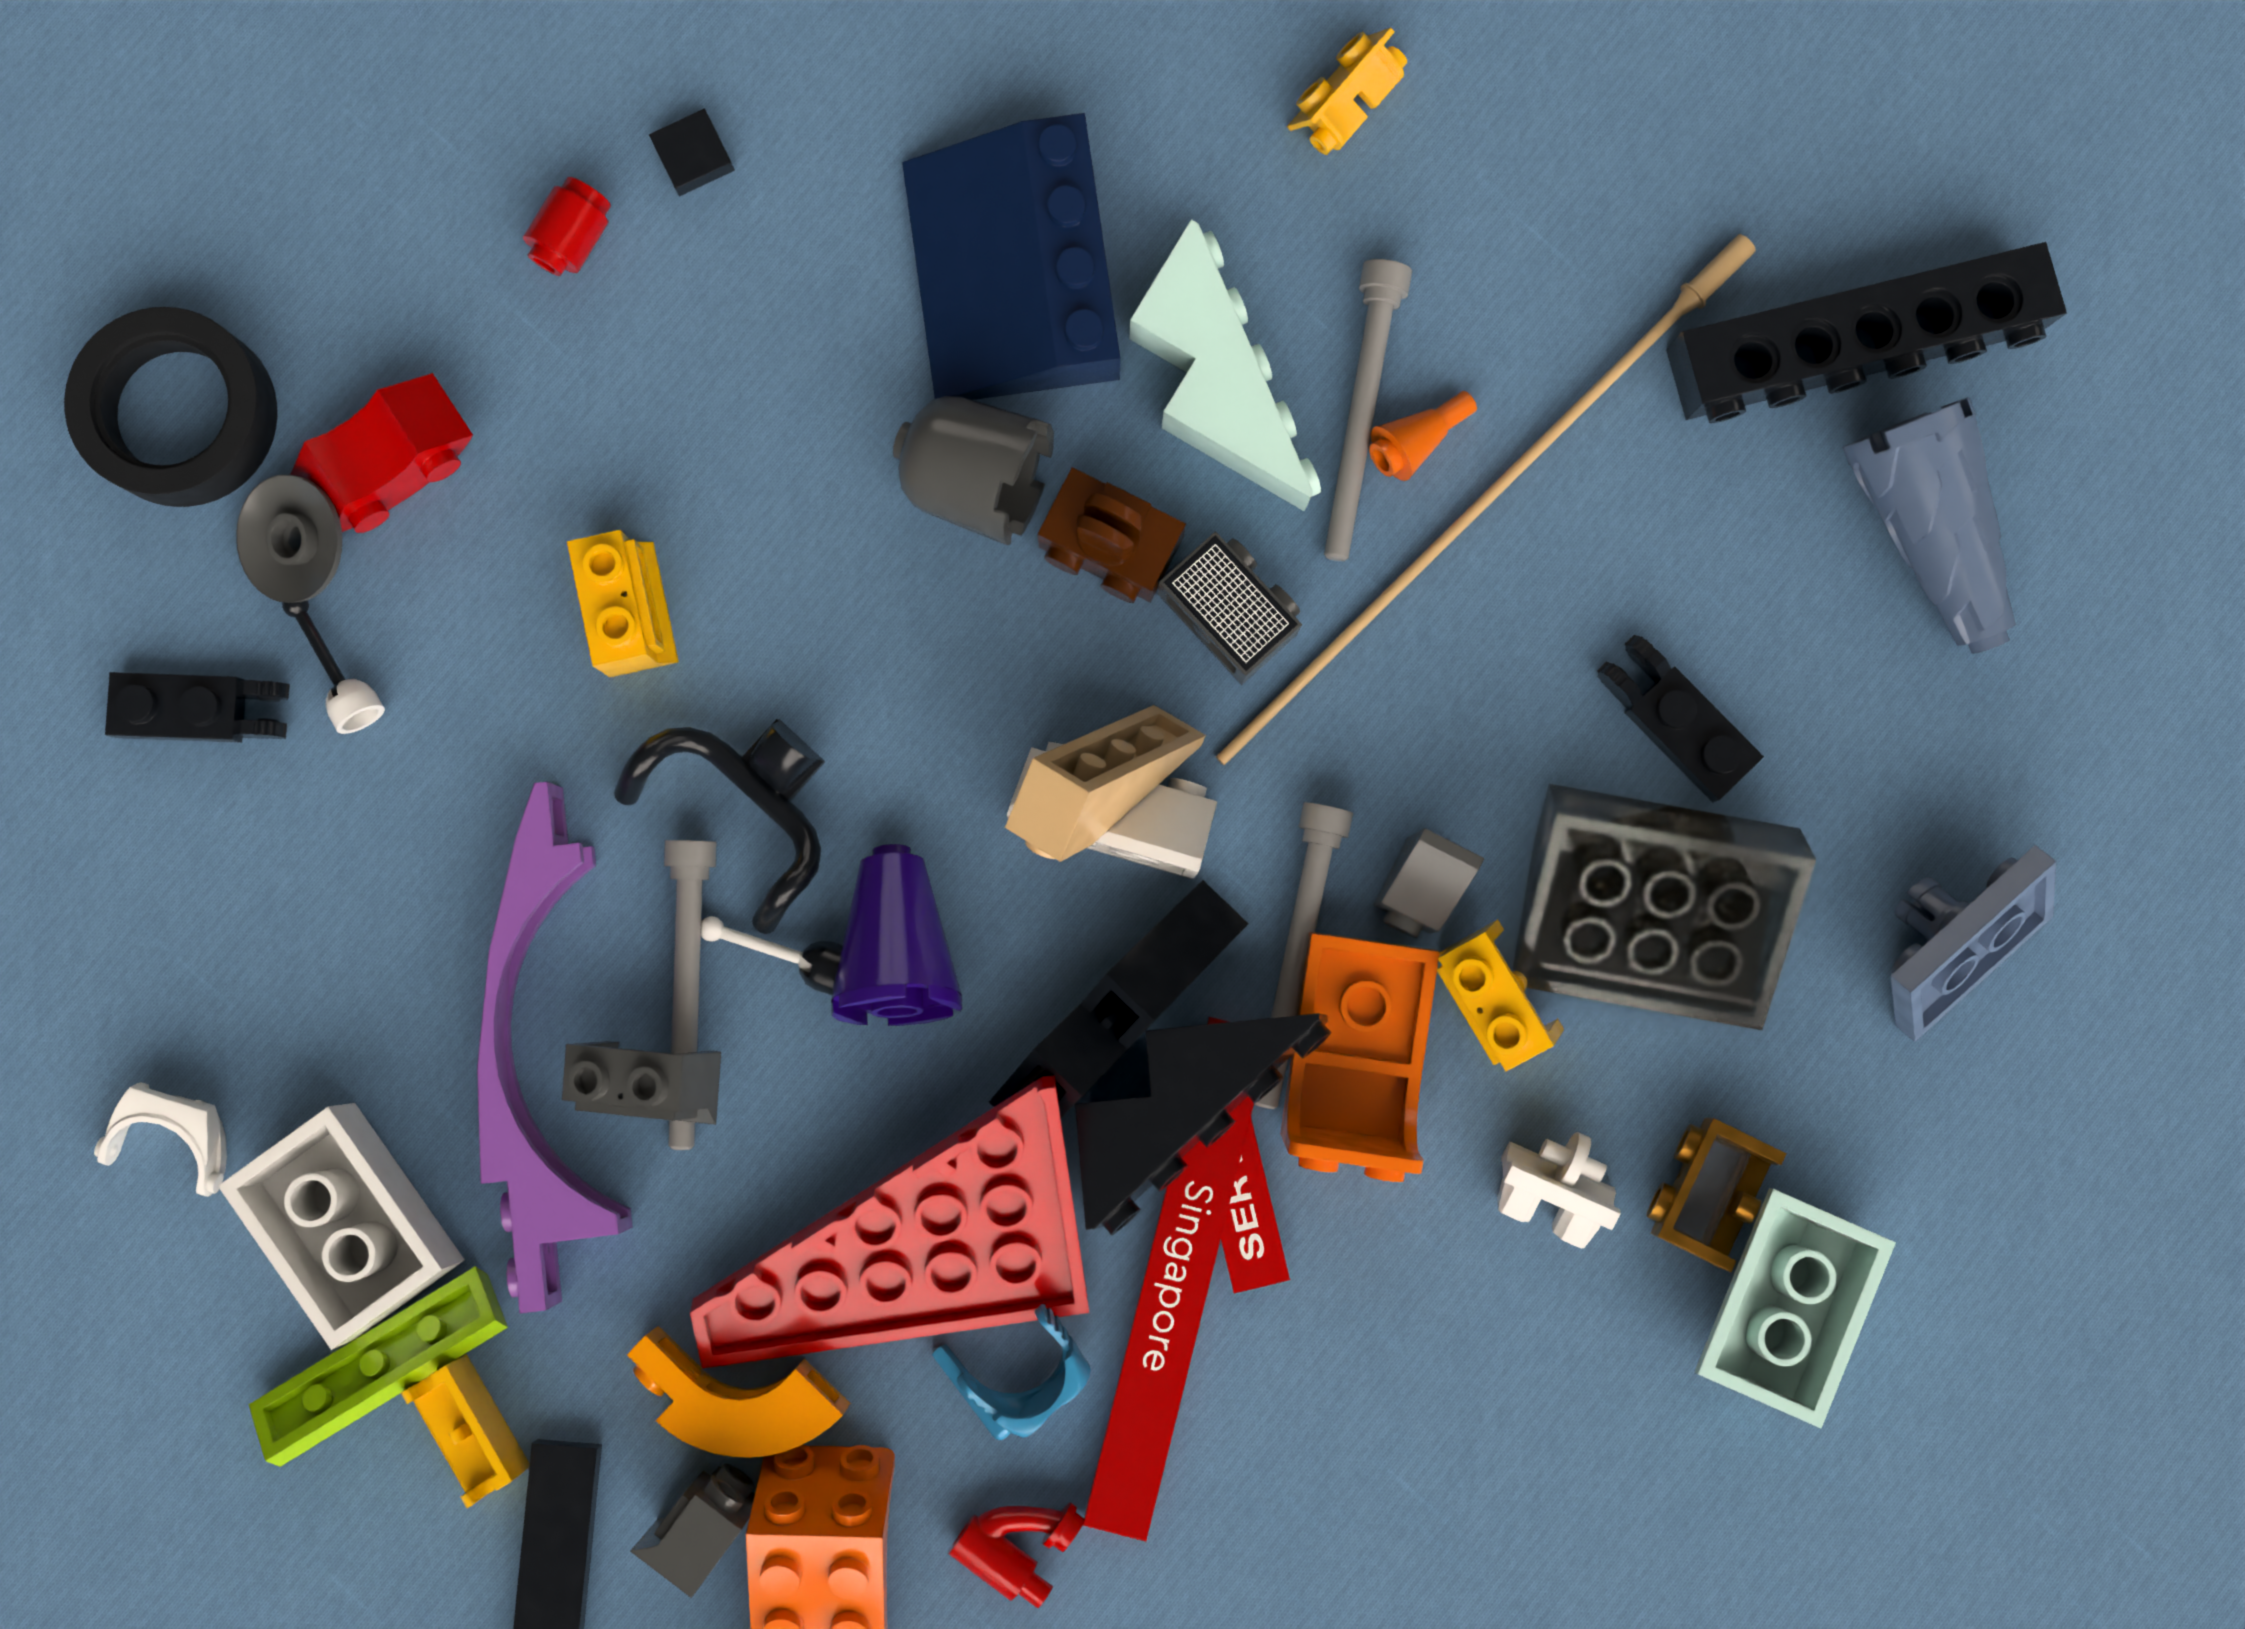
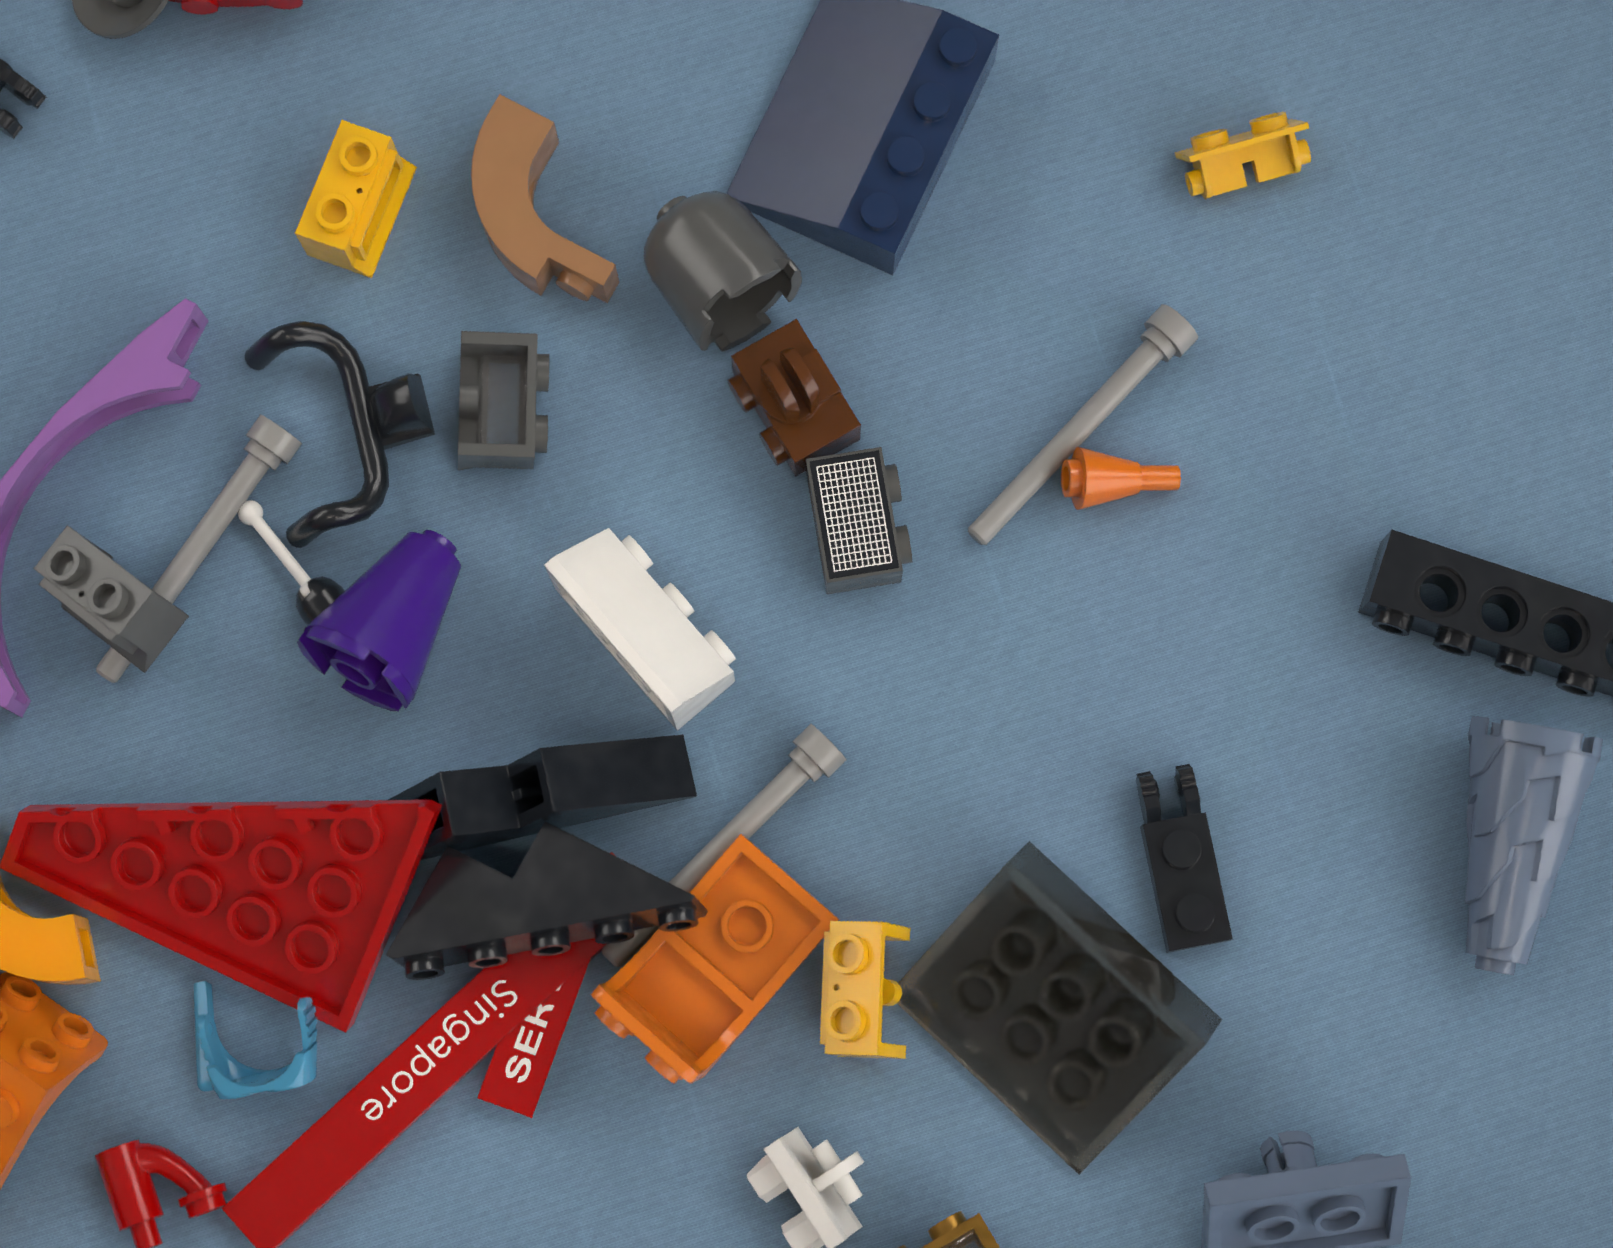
camera: 40 degrees right, 5 degrees down
(350, 701) = (85, 142): white hinge -> none
(733, 492) = (504, 175): none -> medium nougat arch
(862, 697) = (499, 400): none -> dark grey window
(1096, 780) = (632, 582): tan slope -> none
(1224, 396) = (966, 338): light aqua slope -> none
(1426, 883) = (863, 854): dark grey slope -> none
(1692, 296) = (1428, 510): tan piece -> none

